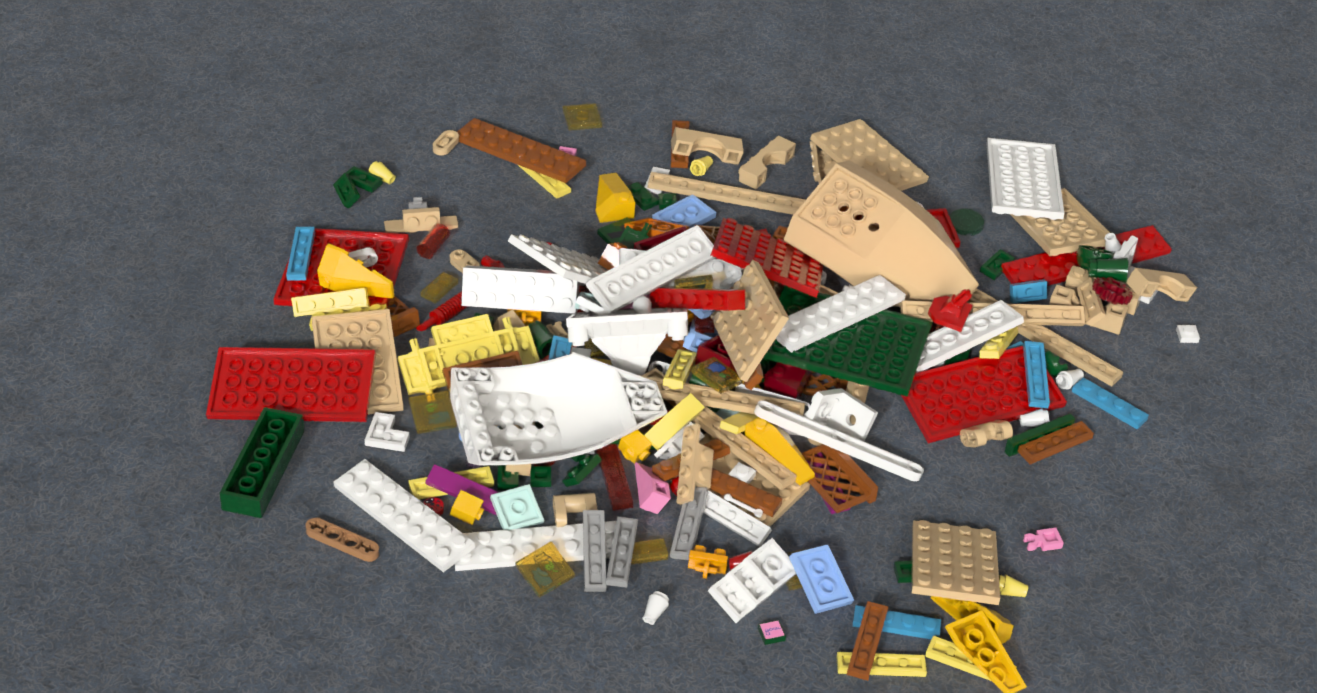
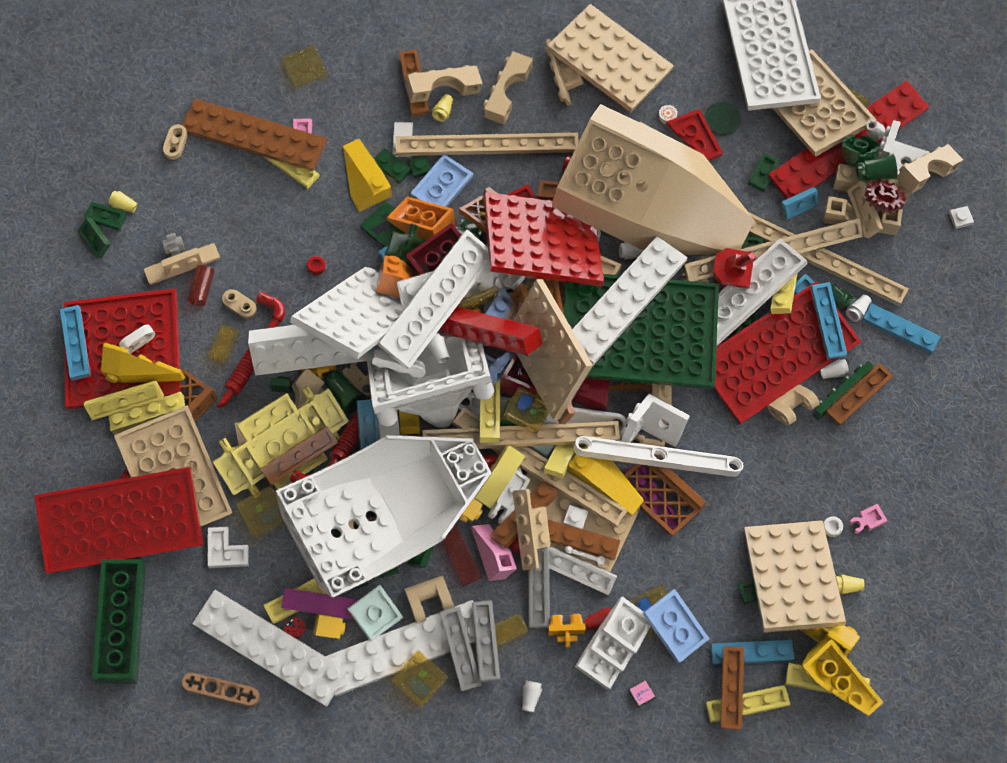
camera: 10 degrees left, 25 degrees up
(1005, 540) = (833, 526): none -> white tile

